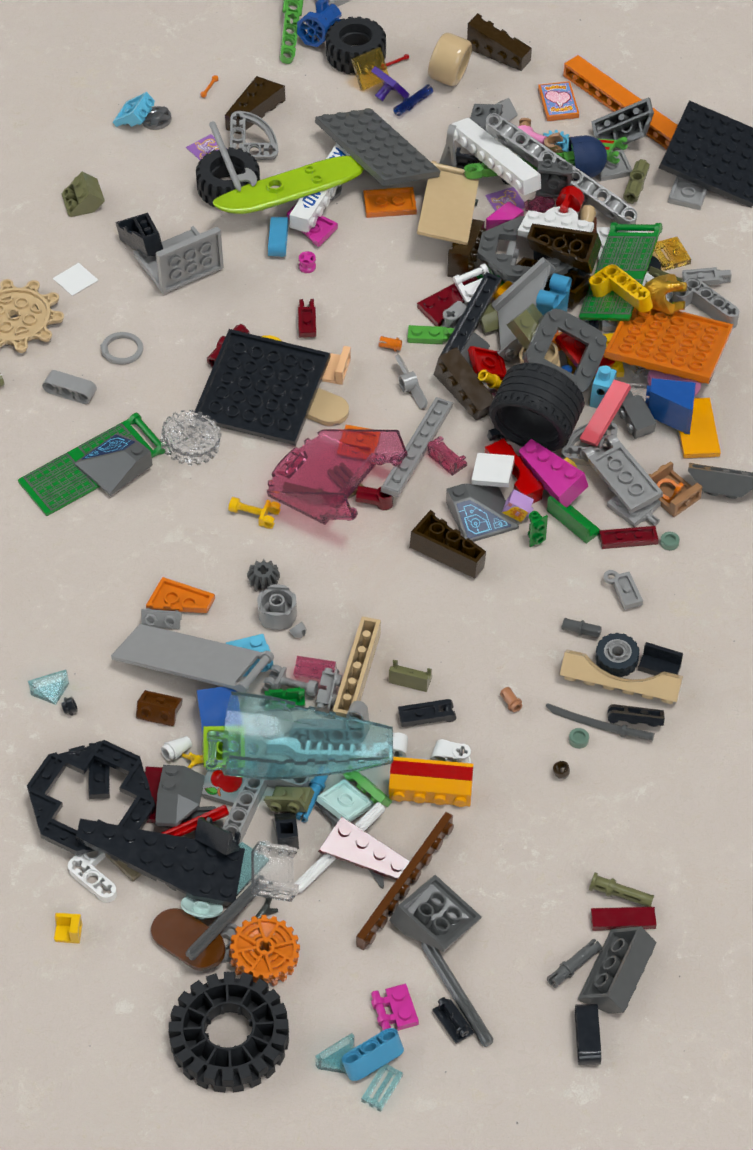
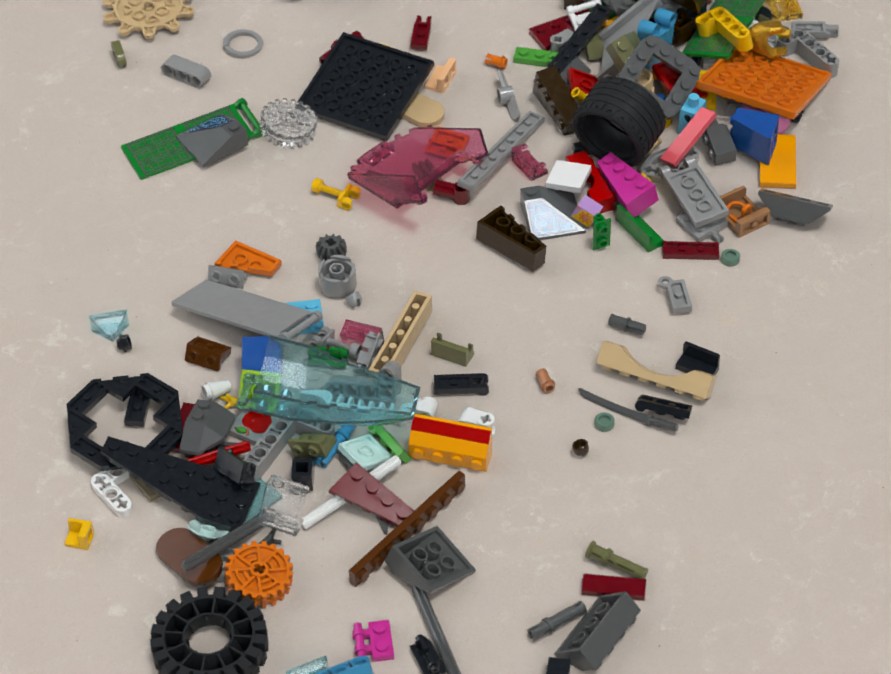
camera: 10 degrees right, 5 degrees down
(621, 645) = (657, 351): black wheel -> none

